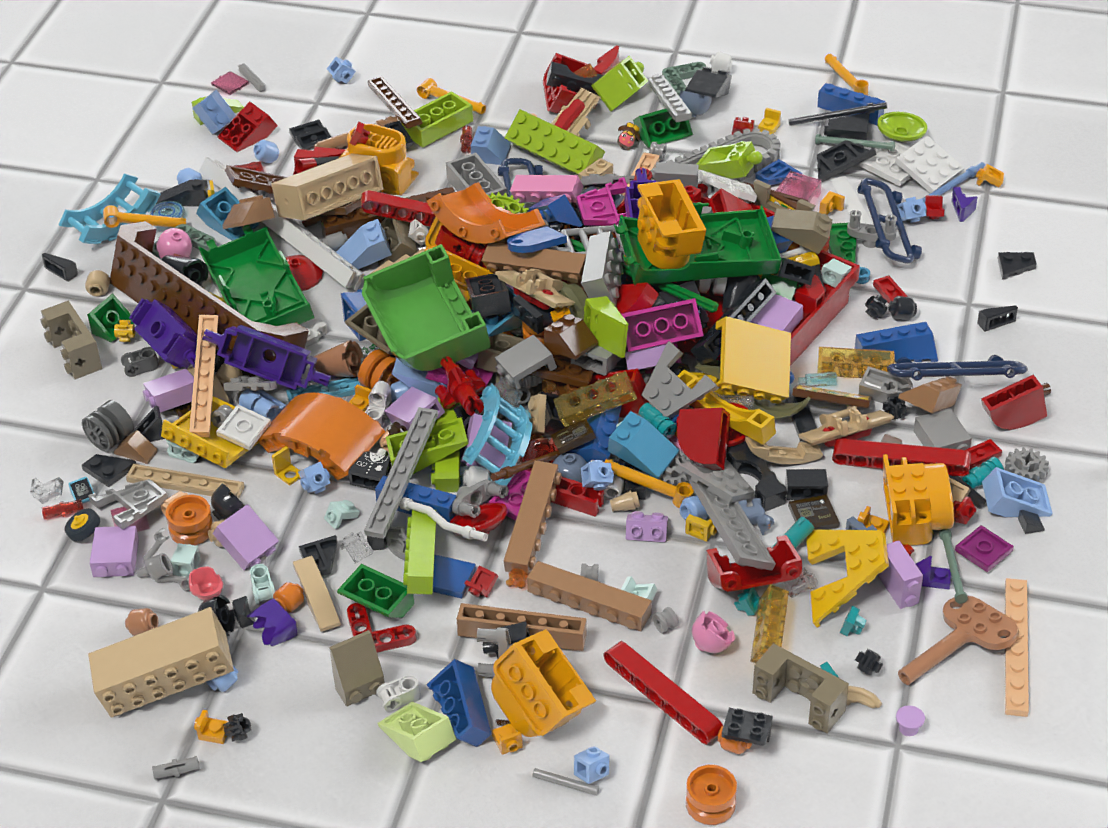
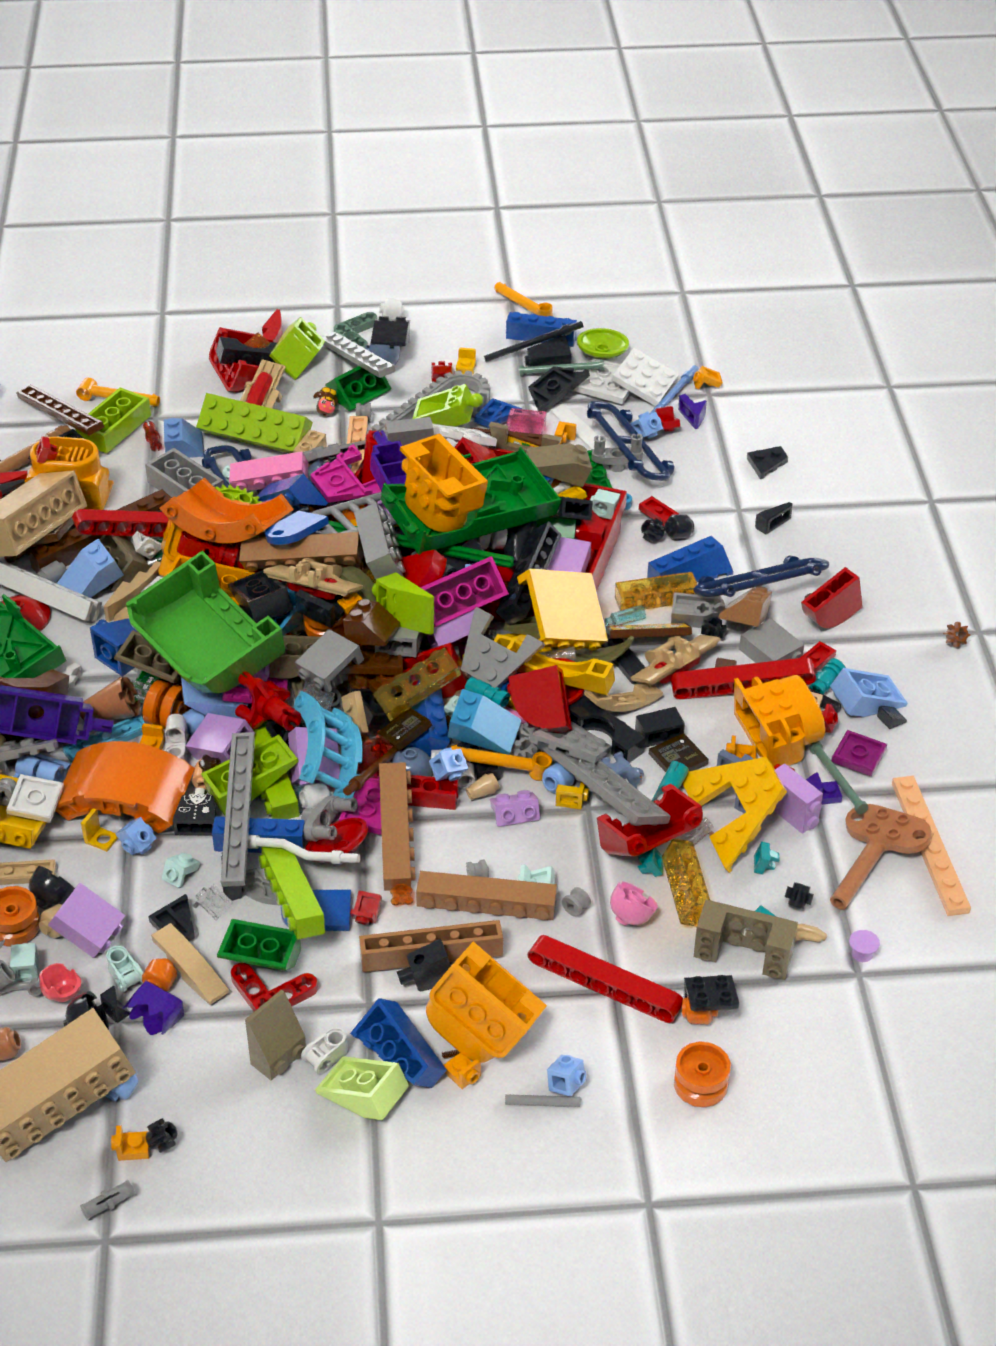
camera: 20 degrees left, 0 degrees up
(501, 638) = (429, 974): light grey connector -> none
(1027, 464) = (865, 658): light grey gear -> none

